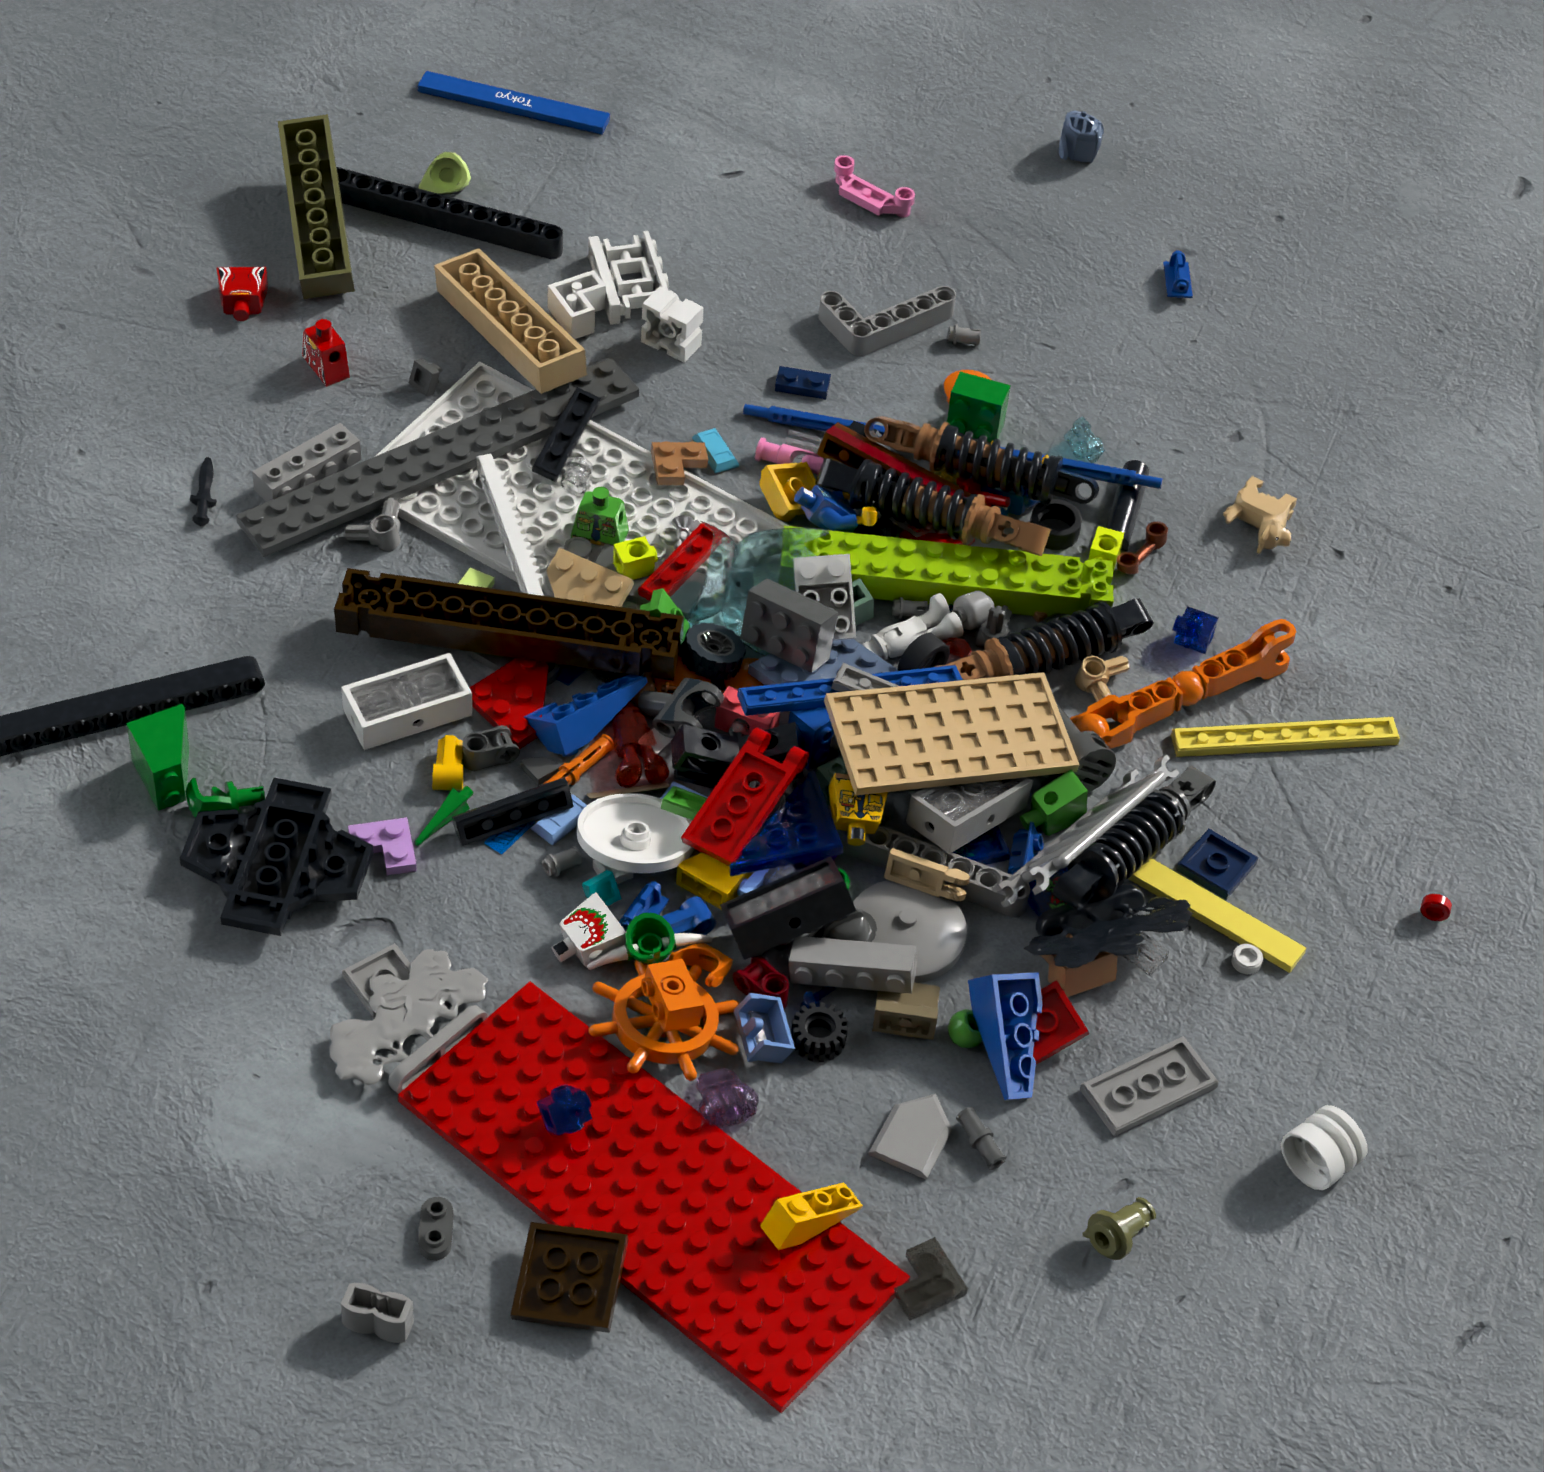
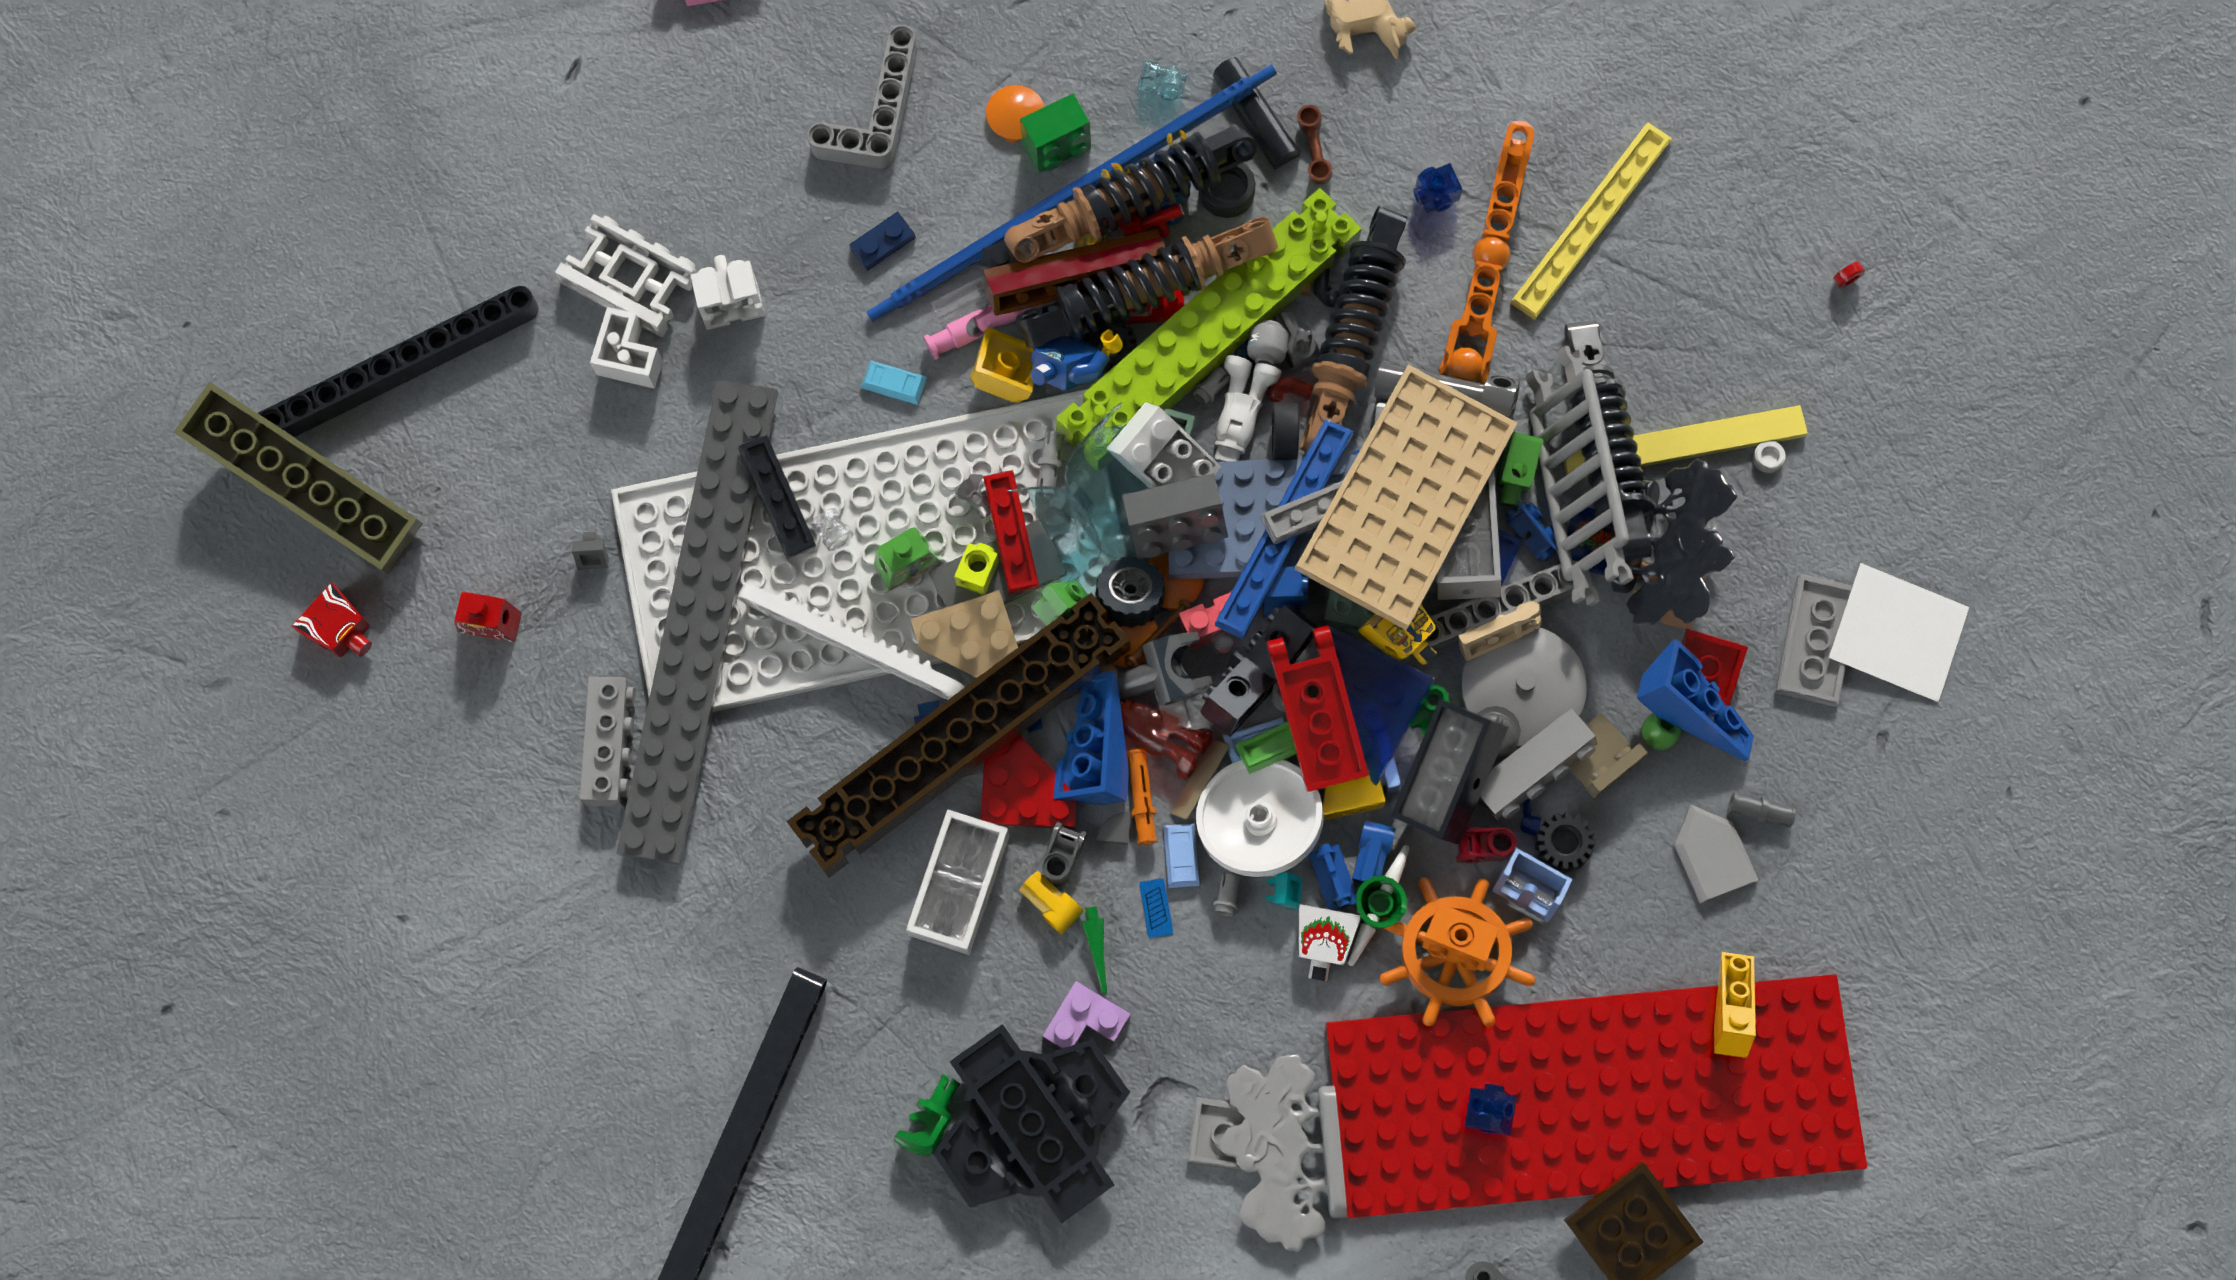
camera: 40 degrees left, 25 degrees up
(161, 754) = (845, 1136): green slope -> none
(203, 499) = (560, 859): black sword -> none
(382, 529) = (736, 728): light grey axle -> none
(446, 174) = (349, 323): yellowish green piece -> none
(477, 578) = (868, 712): yellowish green tile -> none
(510, 320) = (601, 430): tan brick -> none
(512, 811) = (1148, 893): black brick -> none
(514, 102) = (303, 179): blue tile -> none
(579, 546) = (908, 596): light grey piece -> none
(672, 458) = (877, 430): medium nougat plate -> none
(696, 954) = (1429, 862): orange helmet -> none
(725, 1098) = (1567, 969): clear purple piece -> none
(936, 1281) = (1860, 961): clear smoke plate -> none
(963, 335) = (952, 61): light grey pin -> none
(1100, 671) = (1412, 300): tan axle -> none
(1106, 545) = (1291, 164): neon yellow brick -> none
(1113, 1232) = (1929, 792): olive piece -> none
(1215, 1132) = (1899, 632): none -> white sticker
(1217, 864) = (1664, 392): dark blue tile -> none
(1324, 1147) = (1992, 574): white wheel -> none

